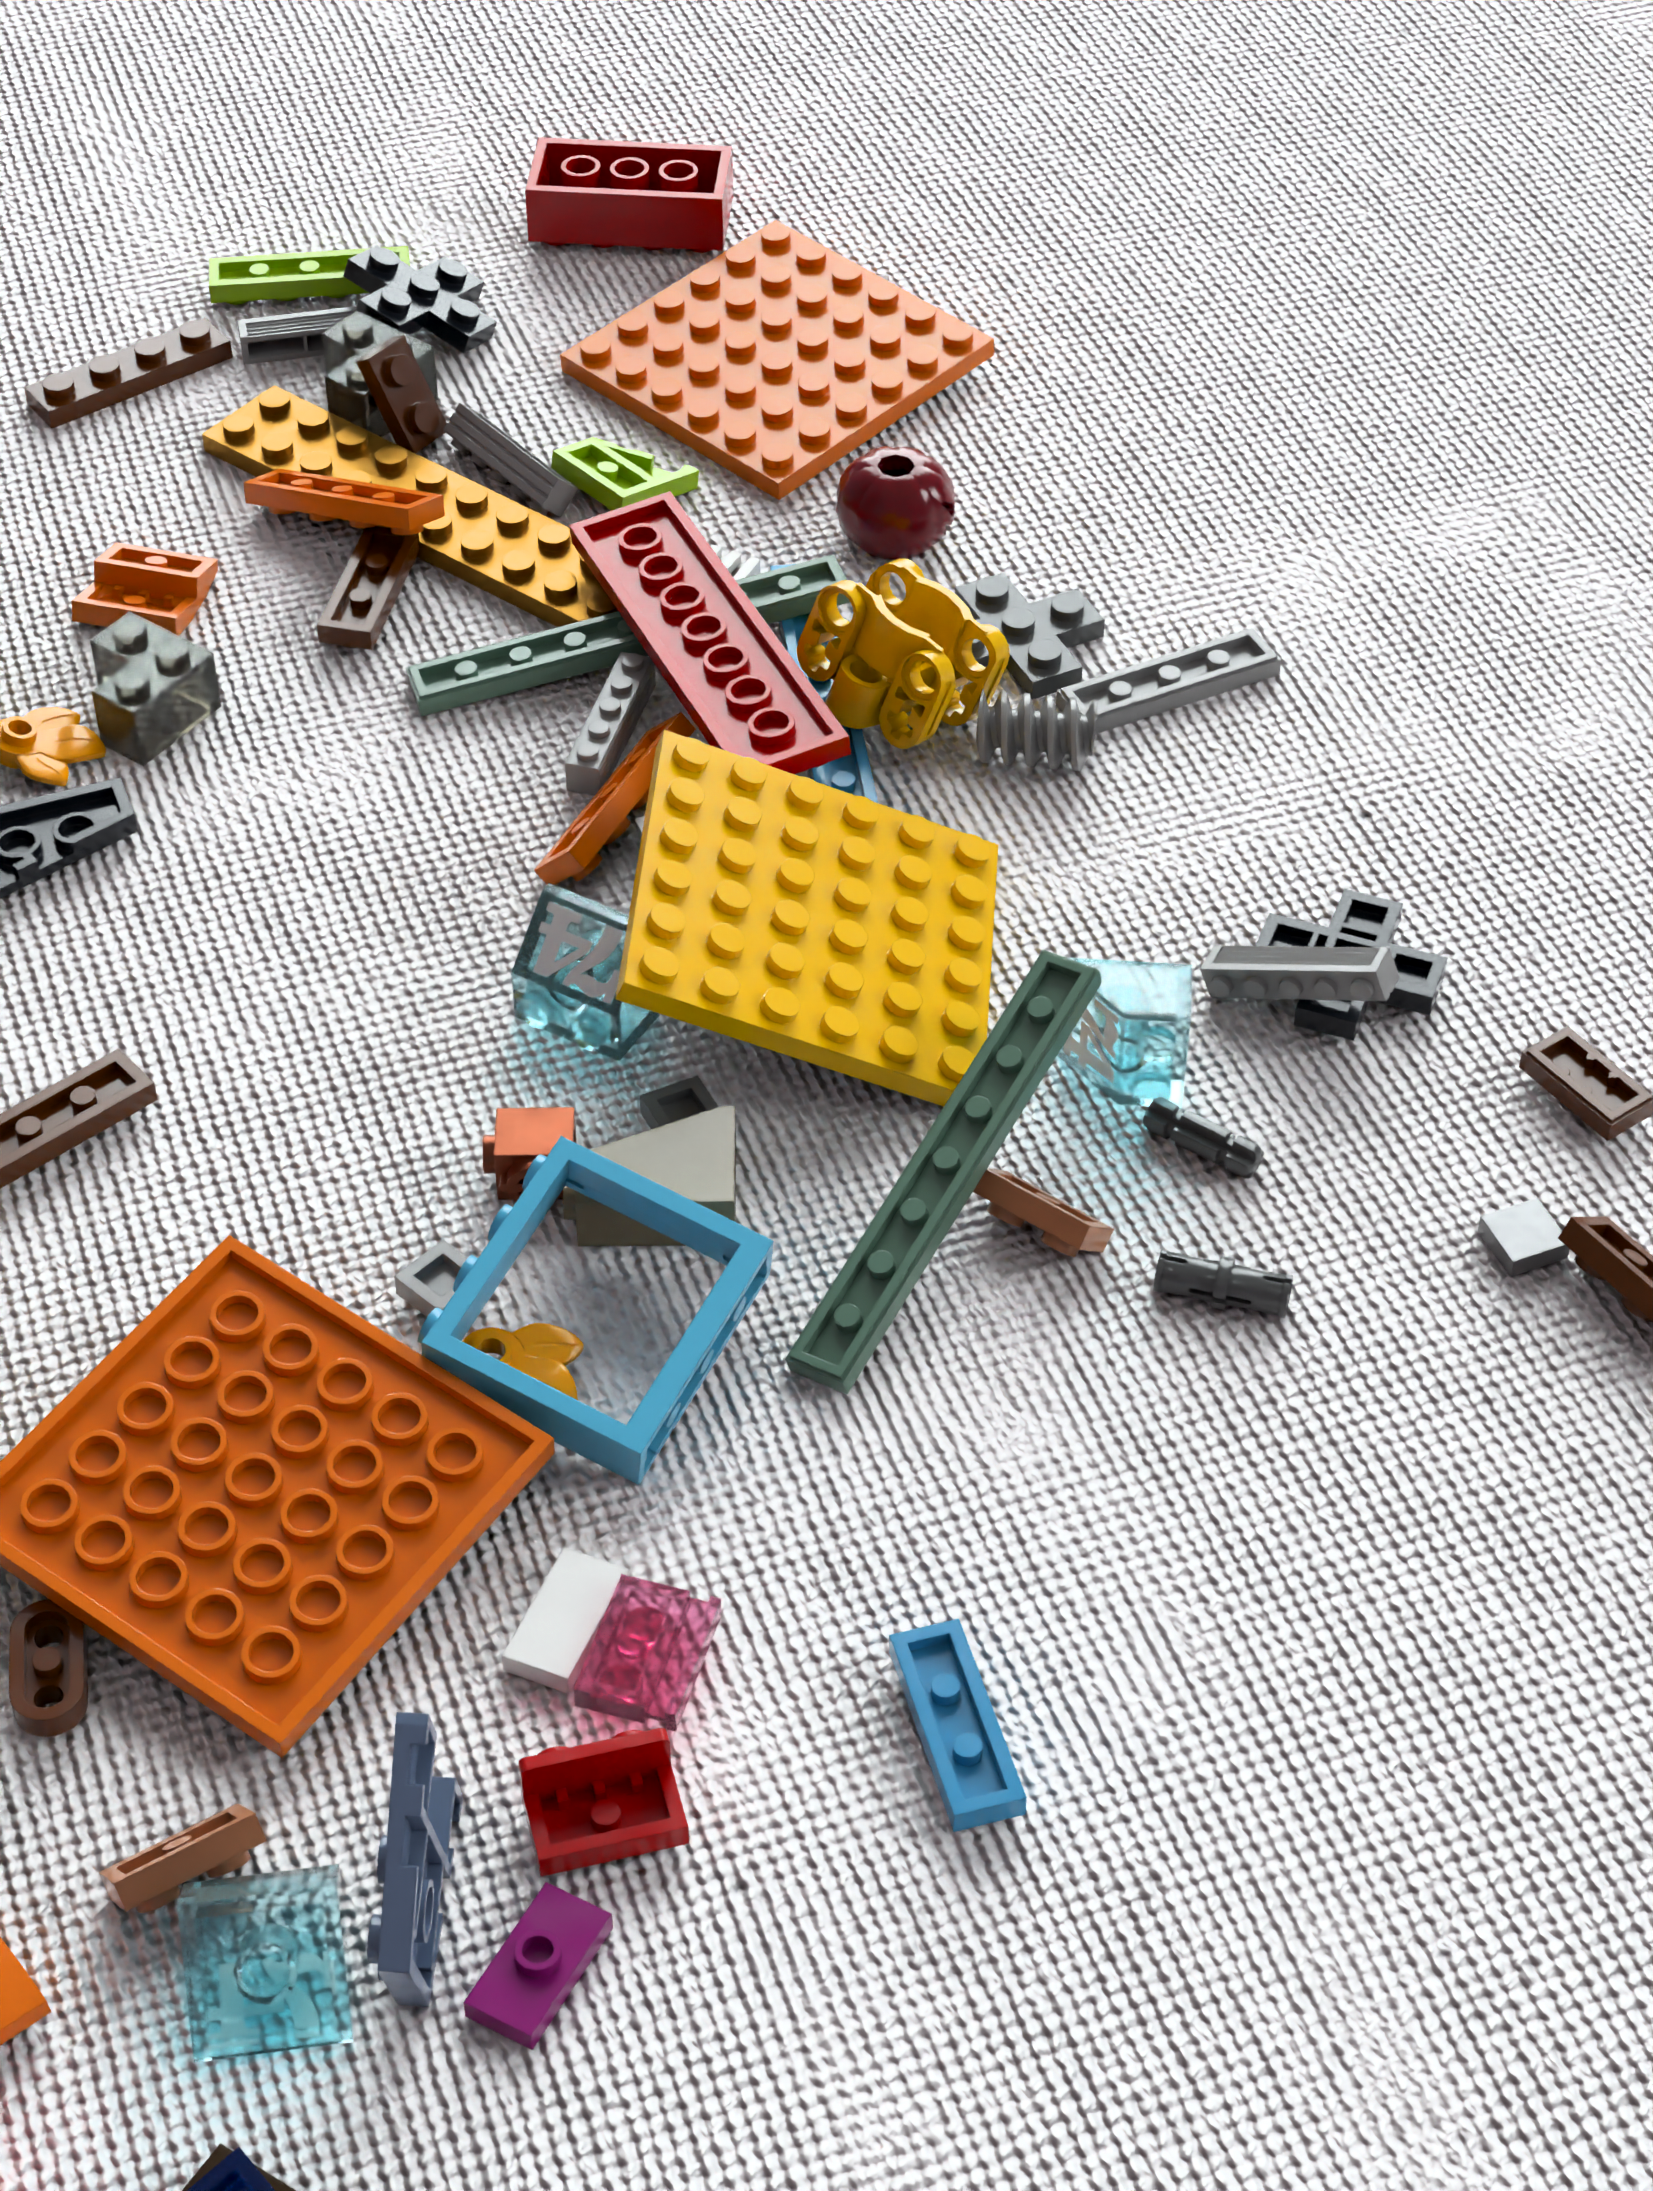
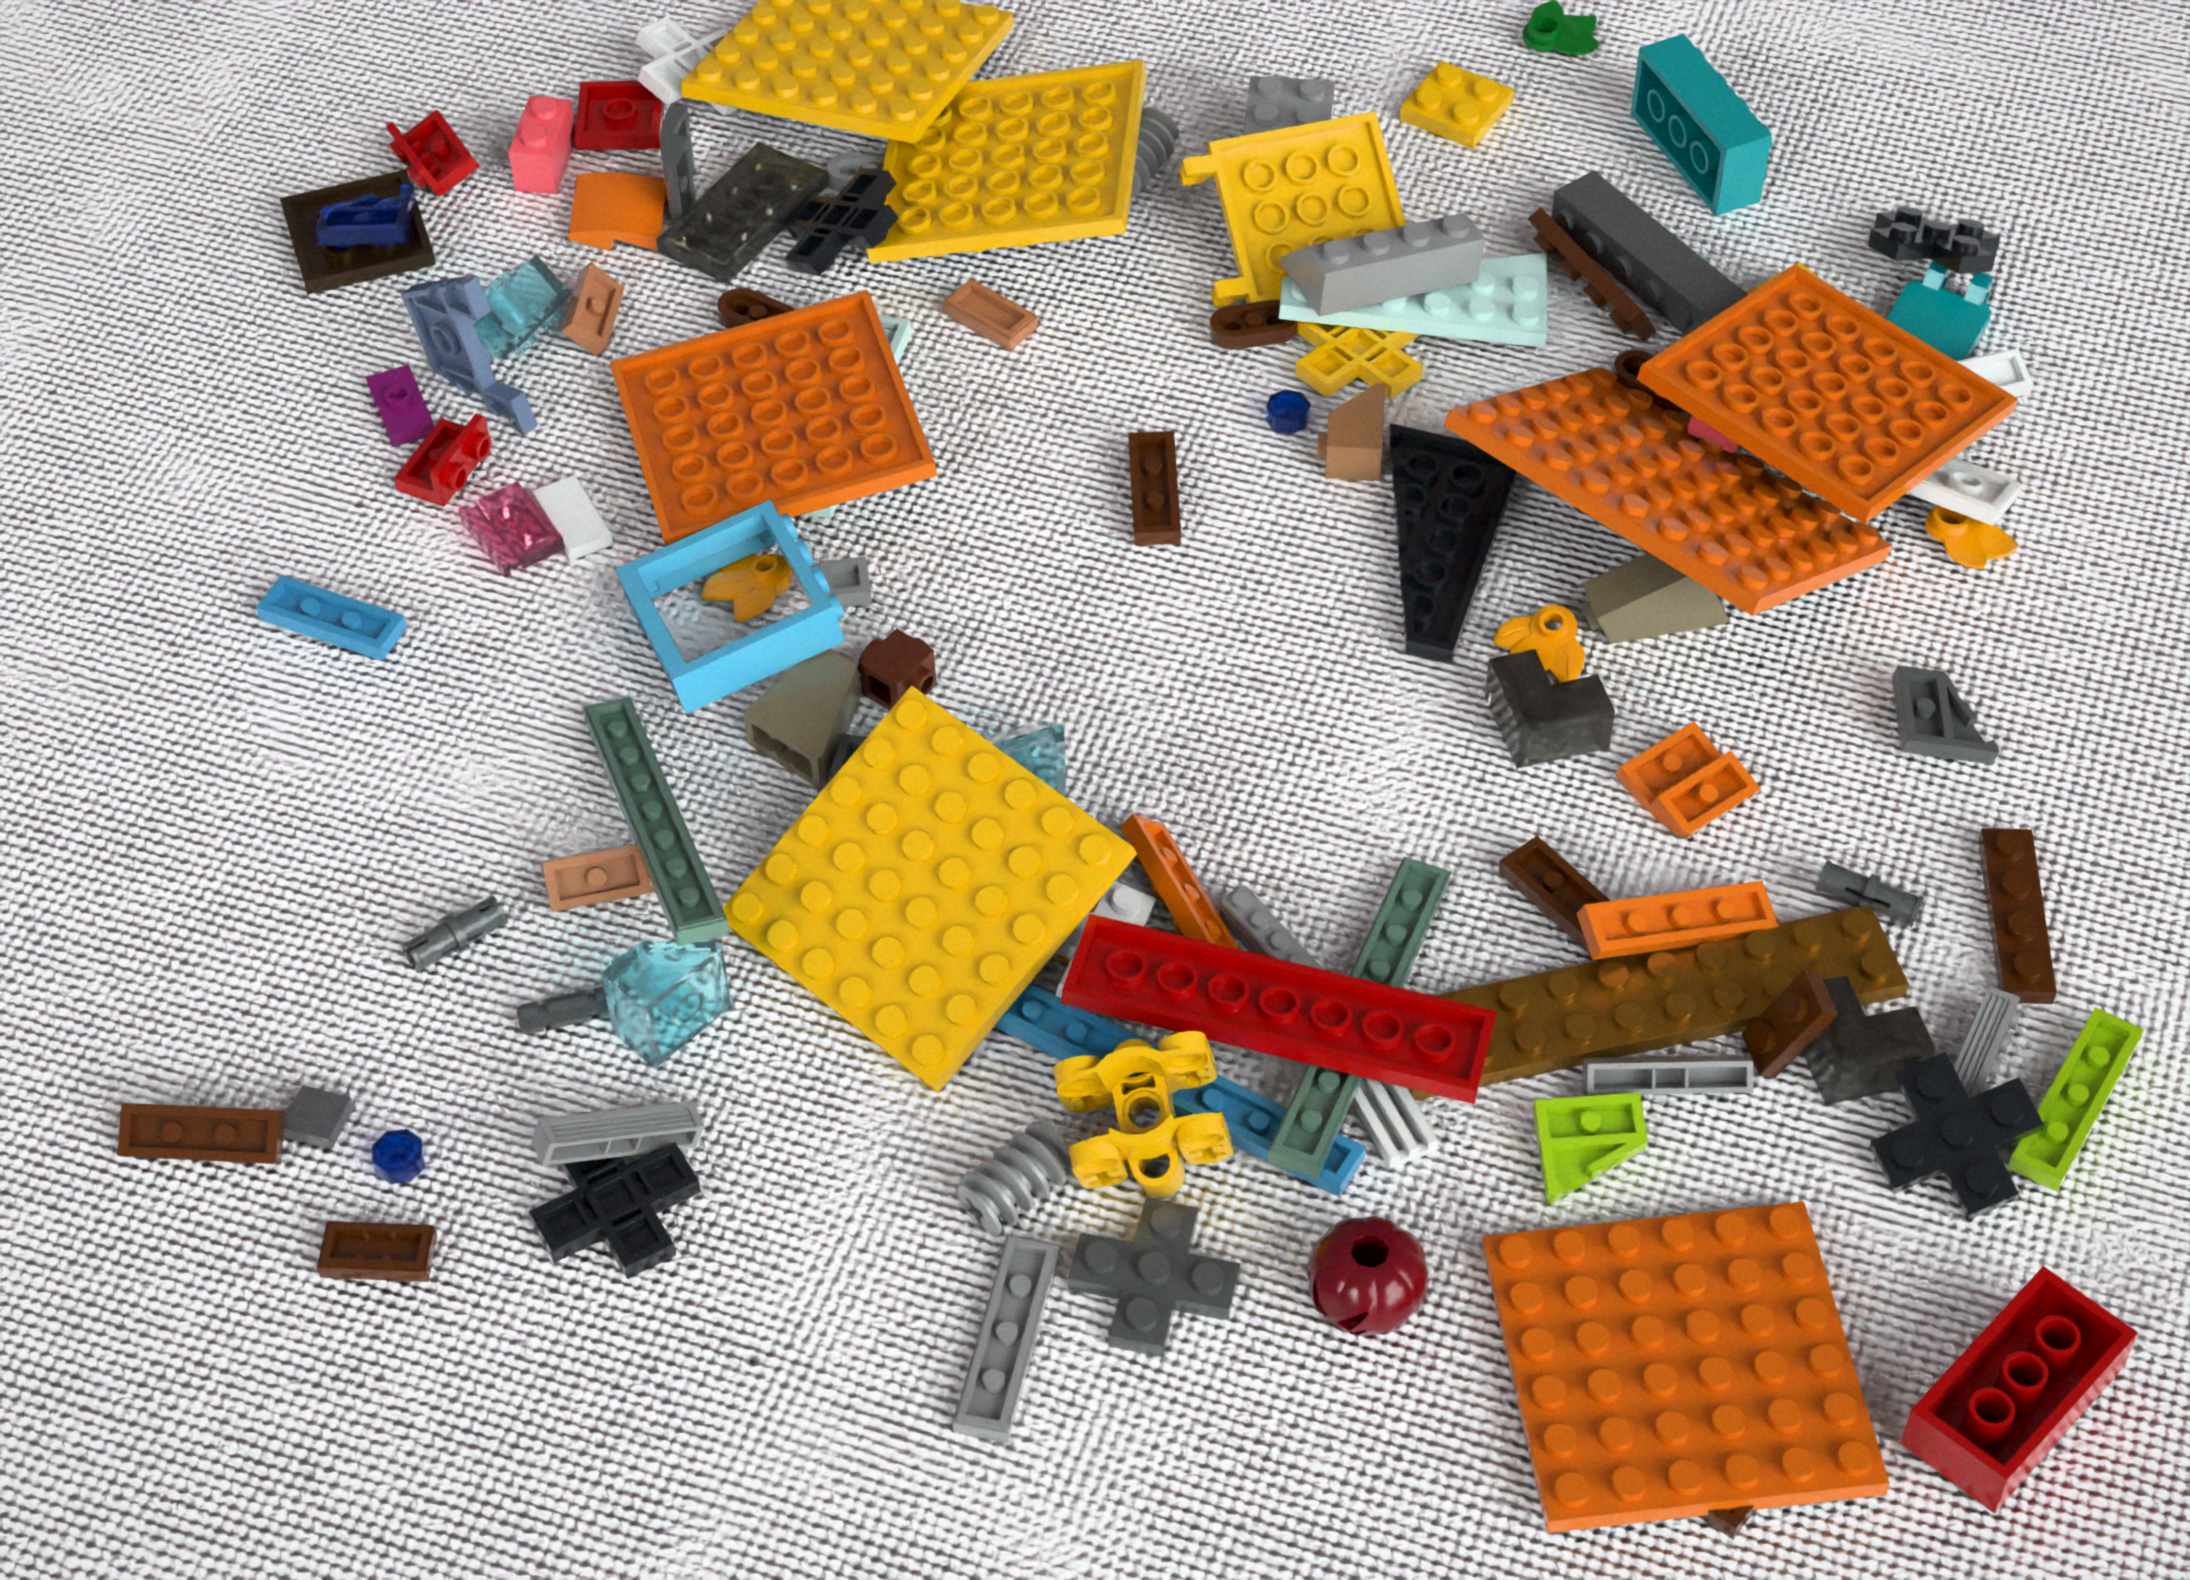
camera: 130 degrees right, 5 degrees up
(189, 440) = (1869, 892): none -> dark grey pin
(1489, 1139) = (398, 1156): none -> clear blue tile

